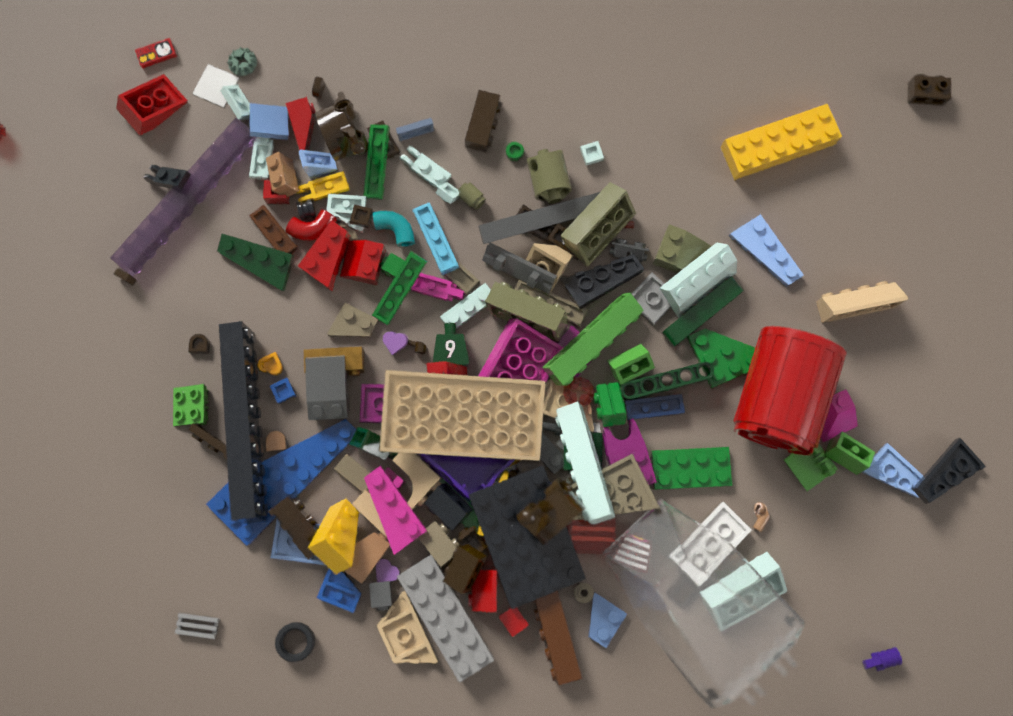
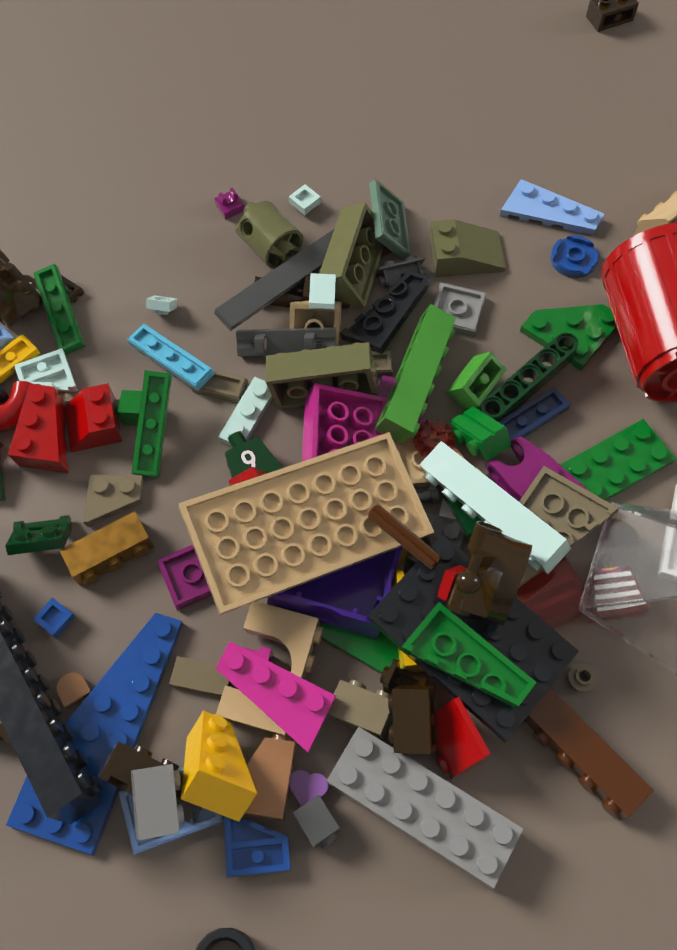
camera: 20 degrees left, 15 degrees down
(271, 364) = (24, 594): light orange tile -> none
(293, 541) = (155, 801): none -> light grey brick
(294, 335) = (39, 535): none -> dark green plate
(326, 388) = (111, 581): dark grey slope -> none
(361, 216) = (66, 369): dark brown tile -> none
(370, 443) = (201, 623): dark green torso -> none
(395, 342) = (176, 490): medium lavender tile -> none
(398, 224) = (116, 361): teal cylinder -> none
(404, 634) = (379, 863): tan wing -> none
(415, 129) = (89, 258): sand blue tile -> none
(420, 347) = (209, 481): dark brown hand -> none
(426, 168) = (120, 292): light aqua hinge -> none
(437, 288) = (199, 407): dark pink hinge -> none
(448, 506) = (347, 653): black brick -> none
(471, 195) = (190, 295): olive brick -> none
(483, 121) = (166, 219): dark brown brick -> none
(511, 547) = (462, 653): none -> green wing
(513, 621) = (516, 762): red panel -> none
(514, 151) = (217, 235): green tile -> none
(516, 457) = (404, 536): none -> reddish brown axle
(529, 498) = (448, 582): none -> red tile
(536, 128) = (229, 204): none -> magenta tile
(557, 250) = (322, 291): none -> light aqua slope
(604, 620) = (631, 700): medium blue wing -> none
(641, 205) = (389, 219): none -> sand green tile
(700, 278) = (498, 260): light aqua slope -> none
(702, 311) = (520, 295): dark green beam -> none
(761, 298) = (574, 256): none -> blue tile
(780, 141) = (497, 107): yellow brick -> none

